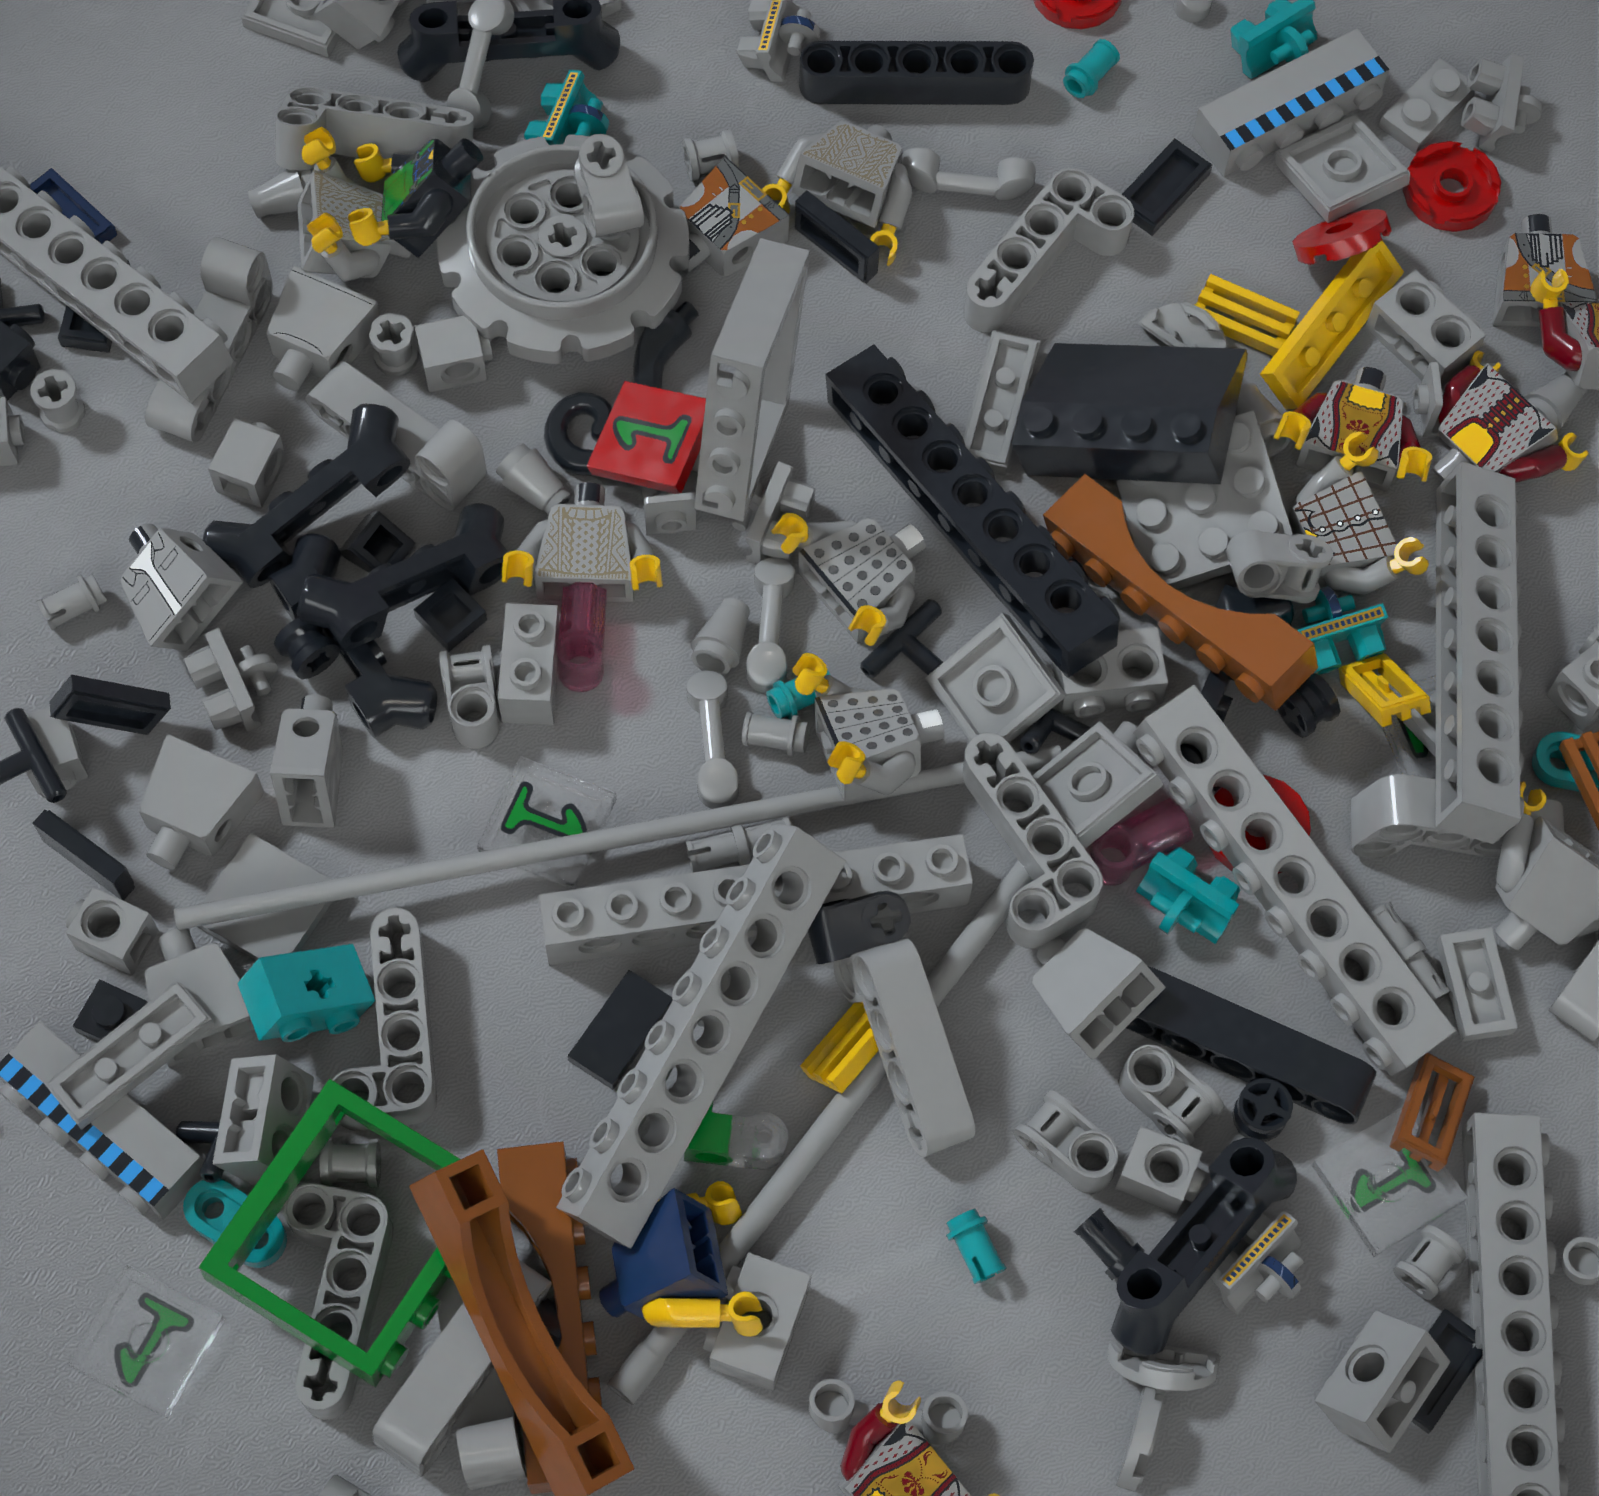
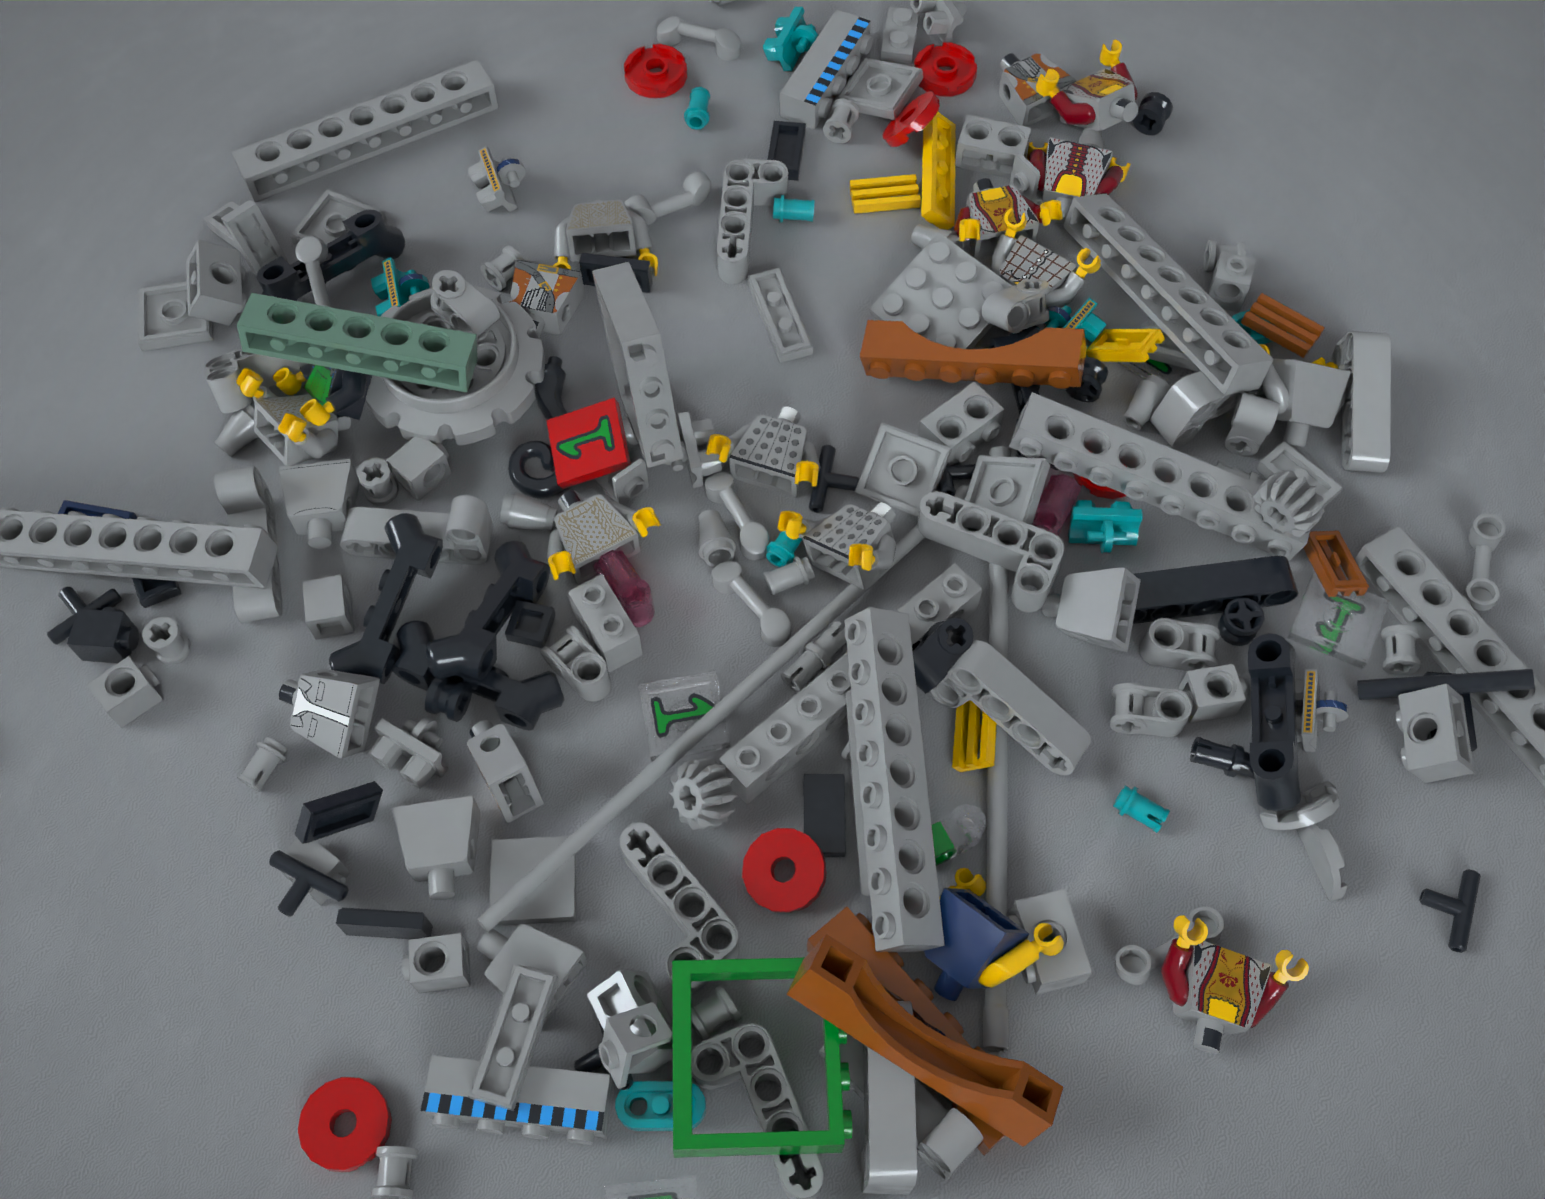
camera: 30 degrees left, 5 degrees down
(106, 1010) = (473, 1020): black plate -> none
(225, 1132) = (621, 1043): none -> light grey bracket
(306, 993) = (607, 918): teal brick -> none
(376, 543) = (448, 609): black slope -> none
(498, 922) = (702, 793): none -> light grey gear
(508, 1043) = (760, 865): none -> red tile
(540, 261) = (358, 342): none -> sand green brick
(934, 61) = (596, 160): black beam -> none
(1067, 638) = (816, 377): black brick -> none
(1112, 273) = (793, 209): none -> teal pin
(1131, 413) = (868, 273): black slope -> none
(1184, 326) = (863, 217): light grey tile -> none
(1258, 186) = (842, 122): none -> light grey bush
(1358, 774) = (1145, 401): none -> light grey cone
(1403, 1005) = (1289, 504): none -> light grey gear
(1449, 1338) = (1462, 683): none -> black piece
(1456, 879) = (1251, 424): none -> light grey piece

